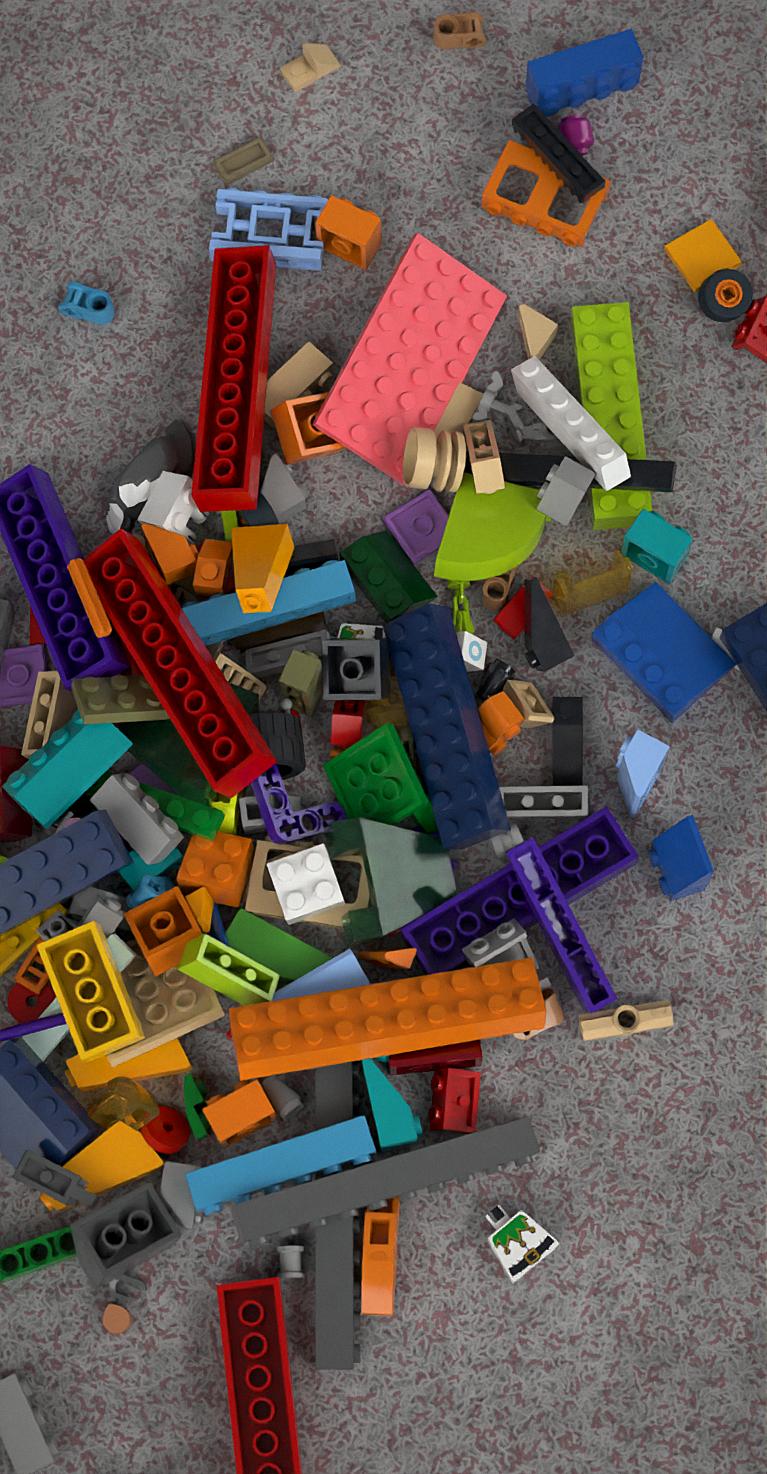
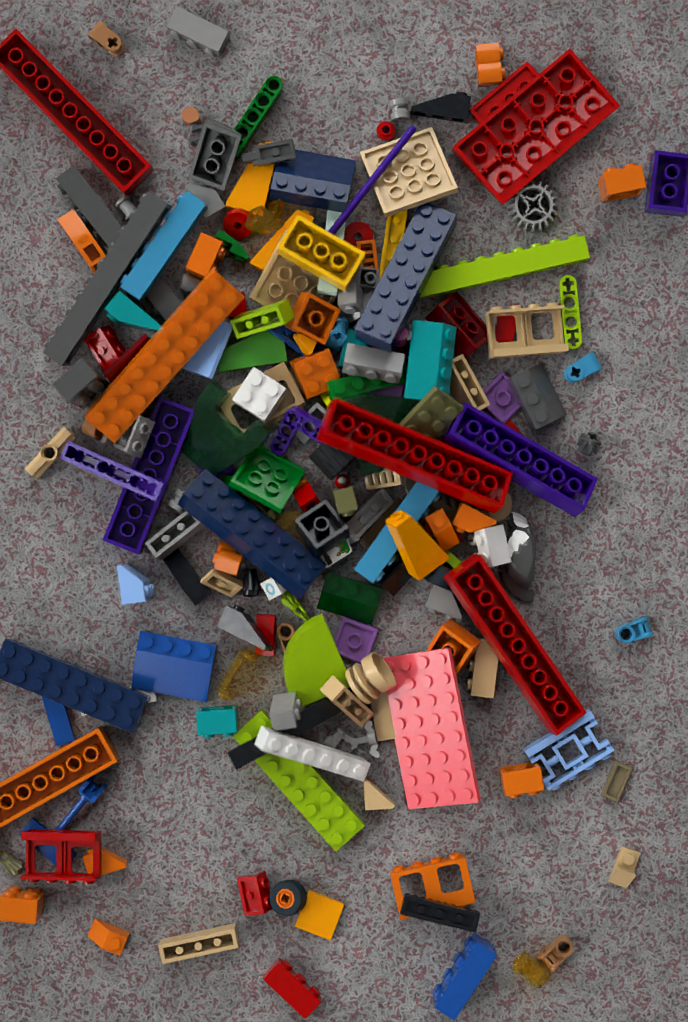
camera: 140 degrees right, 15 degrees up
(89, 598) = (489, 457): orange axle -> none
(389, 957) = (189, 394): orange slope -> none
(502, 32) = (531, 969): none -> clear yellow brick
(518, 1242) = (22, 302): torso -> none
(519, 1062) = (81, 383): none -> dark grey brick
(577, 132) = (442, 935): magenta head -> none
(681, 860) = (79, 555): blue slope -> none

